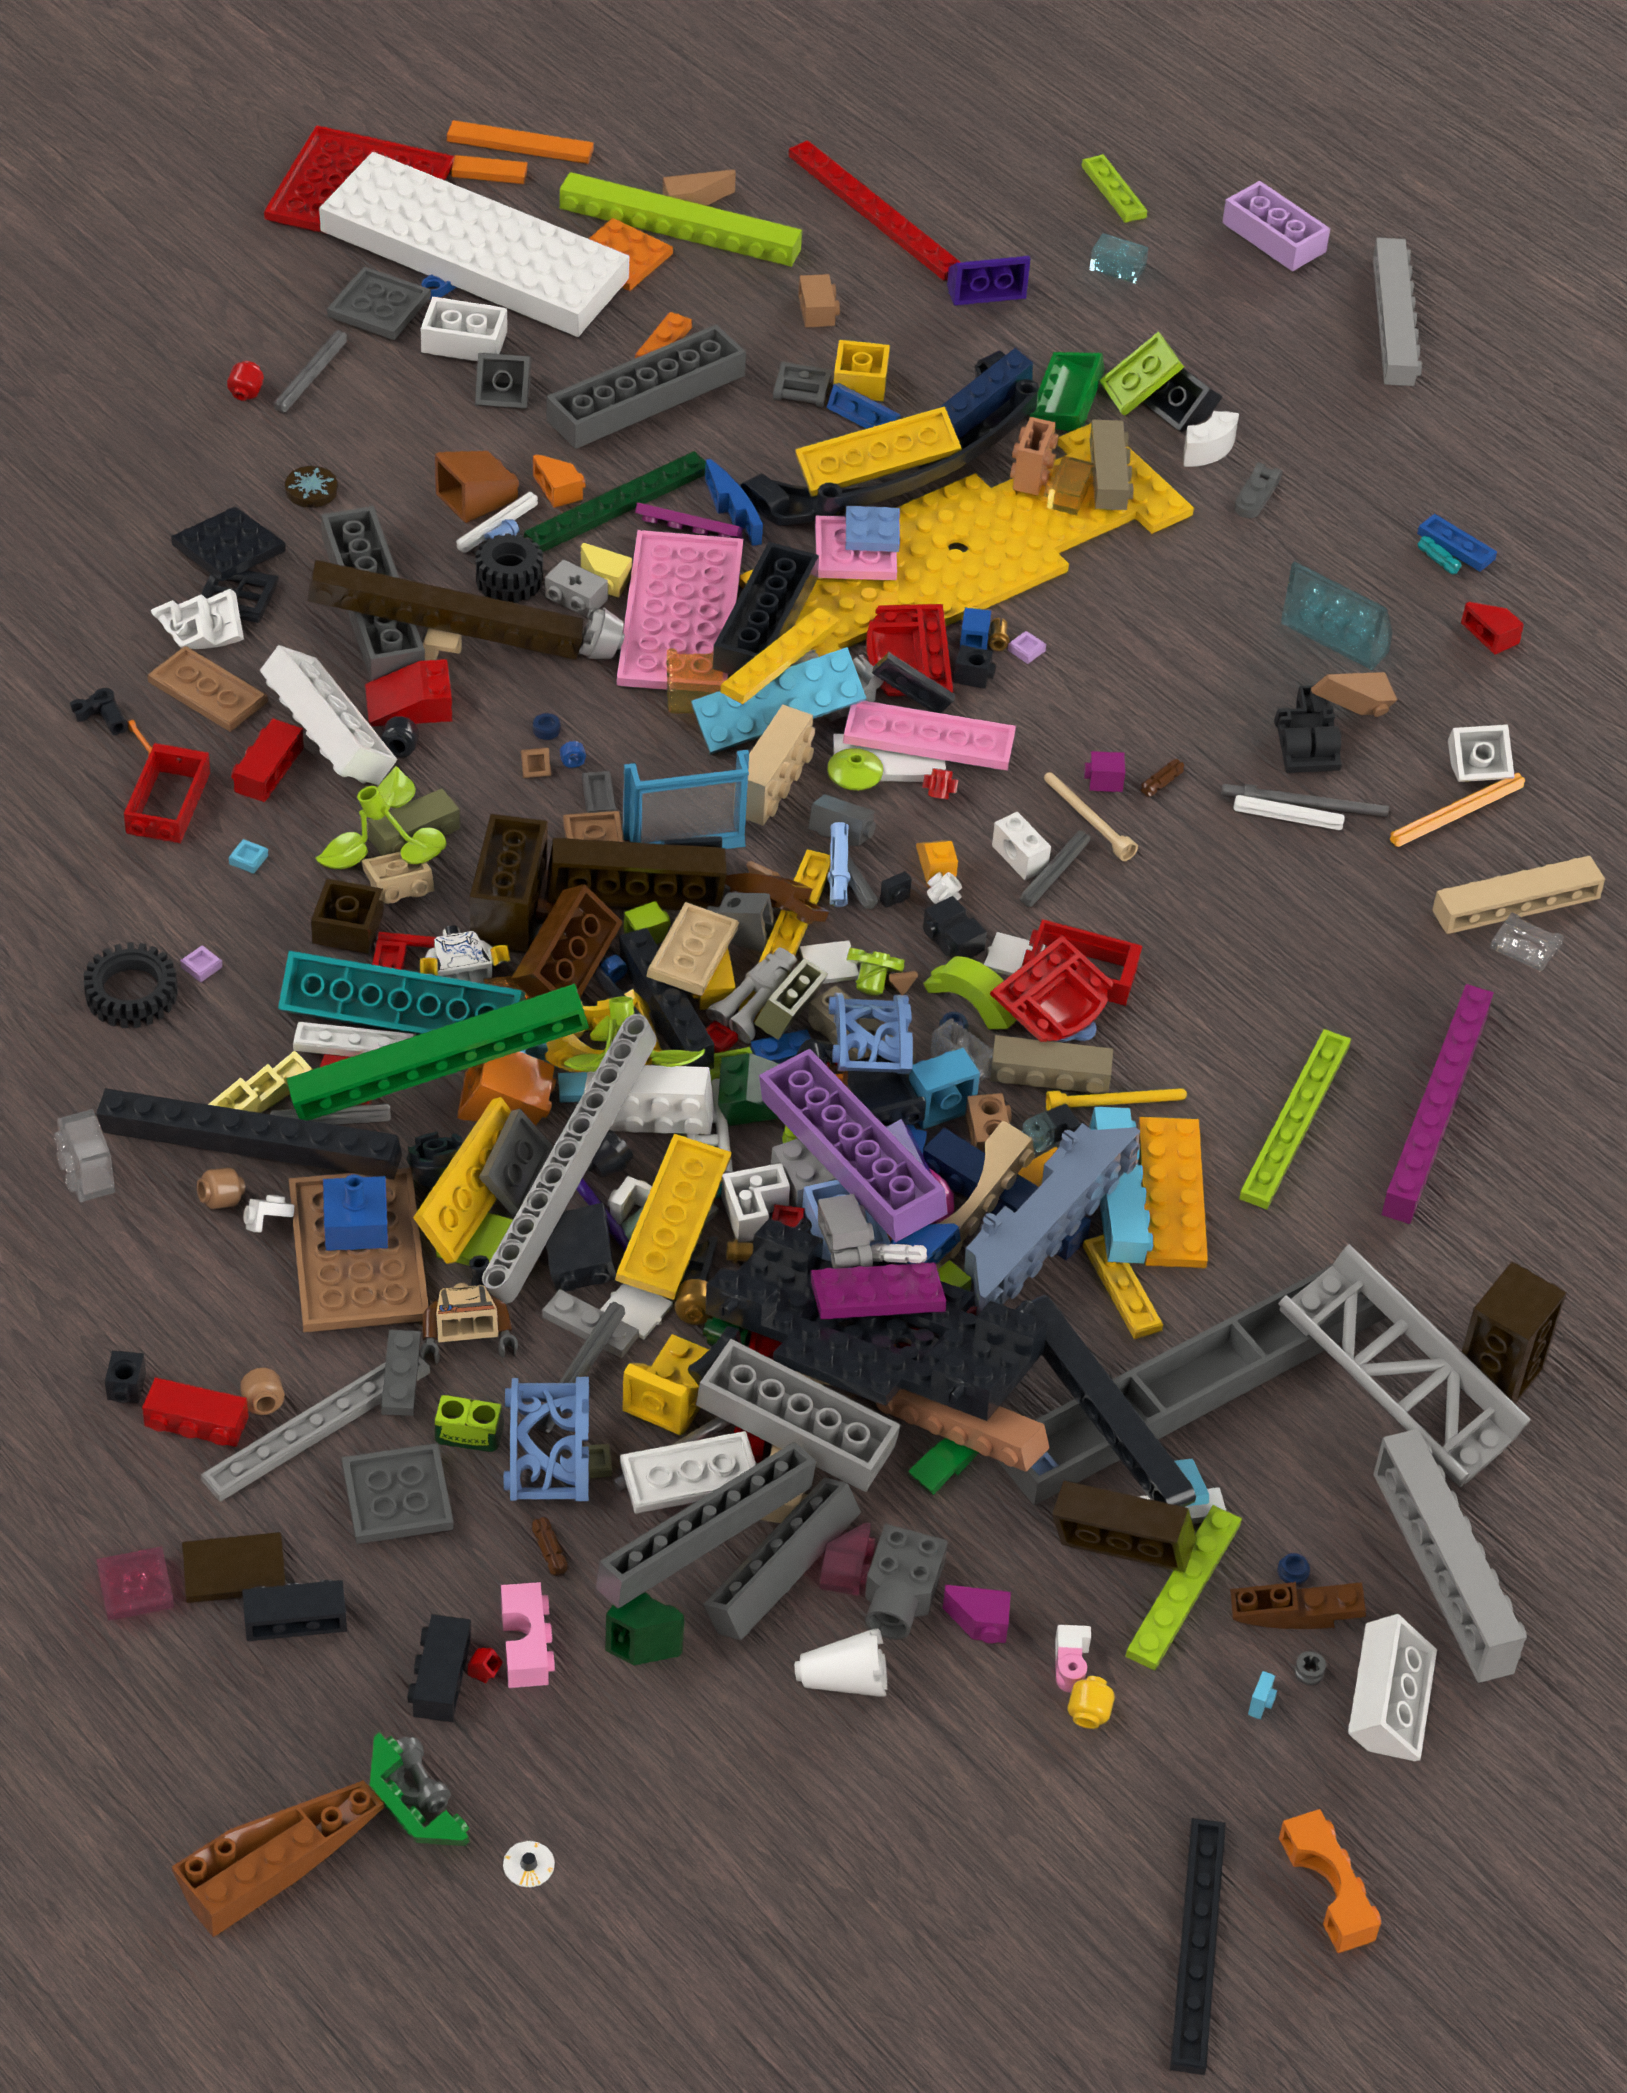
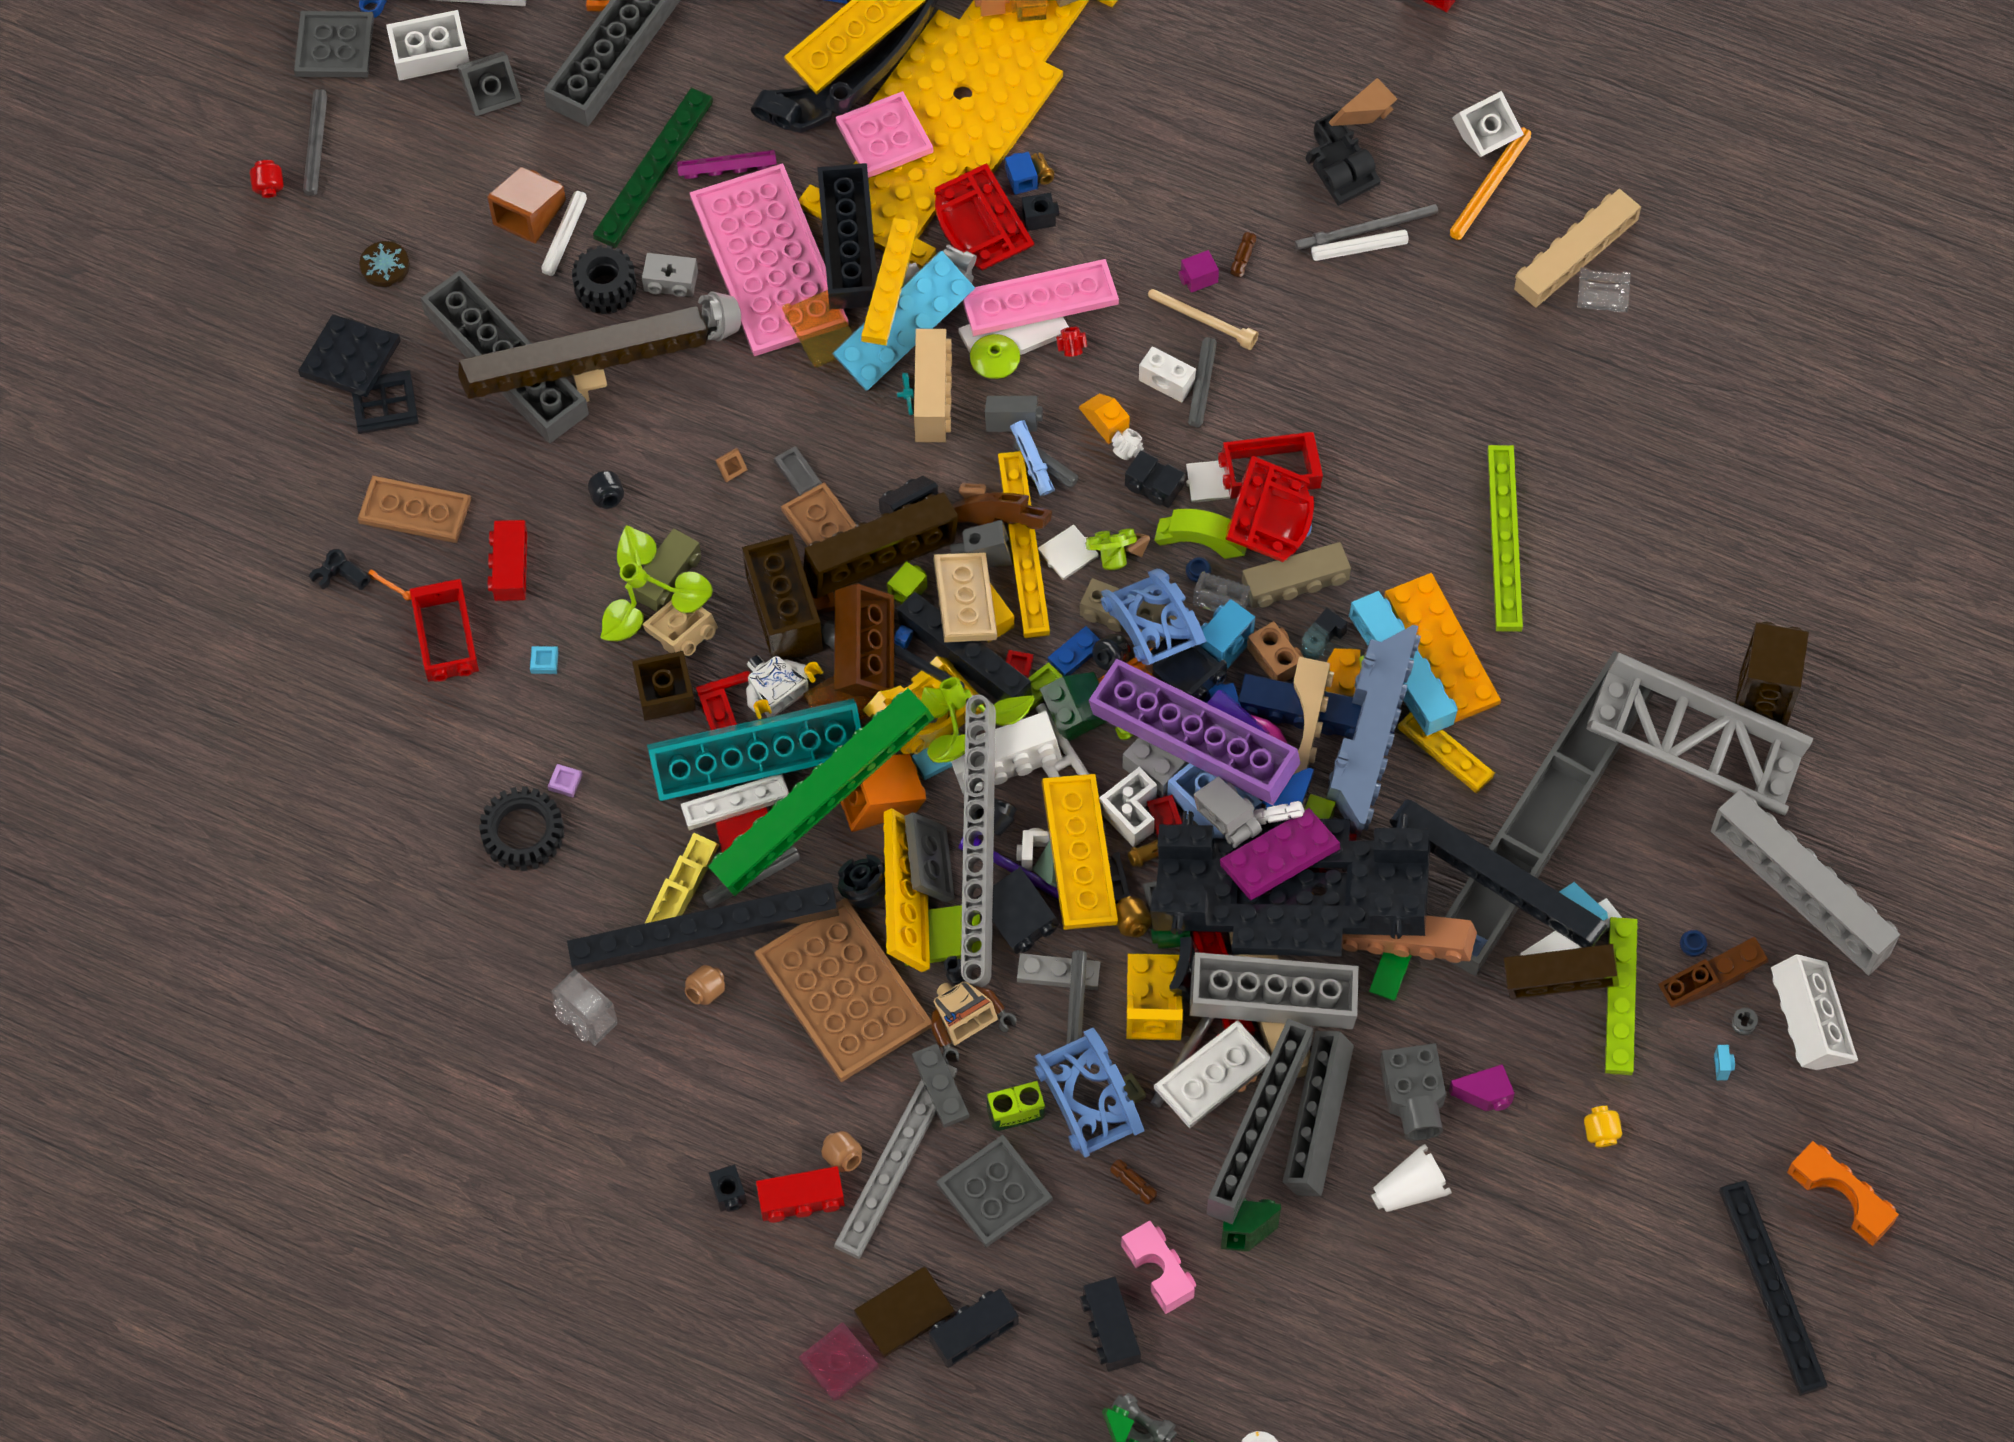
camera: 20 degrees left, 15 degrees up
(202, 621) = (373, 445): white slope -> none
(258, 1208) = (752, 987): white bracket -> none
(328, 716) = (539, 498): white brick -> none
(355, 1213) = (830, 963): blue brick -> none
(413, 692) = (591, 443): red slope -> none
(484, 1664) = (1142, 1305): red piece -> none
(507, 527) = (578, 238): medium blue pin -> none
(546, 726) = (718, 423): dark blue tile -> none
(558, 480) = (593, 168): orange slope -> none
(572, 748) = (757, 443): blue axle -> none
(608, 565) = (683, 242): light yellow slope -> none
(642, 1308) = (1092, 940): white piece -> none
(687, 805) = (890, 469): piece -> none
(732, 499) = (749, 124): blue slope -> none
(764, 980) = (1036, 598): light grey piece -> none
(791, 998) = (1064, 606): olive brick -> none
(845, 1561) = (1364, 1093): clear pink slope -> none
(872, 528) = (891, 112): medium blue plate -> none
(895, 889) = (1088, 461): black plate -> none
(913, 683) = (1004, 255): black tile -> none
(1026, 647) = (1069, 170): lavender tile -> none
(1056, 1098) = (1315, 605): yellow piece -> none
(1069, 1646) = (1567, 1095): leg -> none
(1336, 617) = (1311, 39): clear light blue slope -> none
(1437, 1104) = (1607, 476): magenta brick -> none

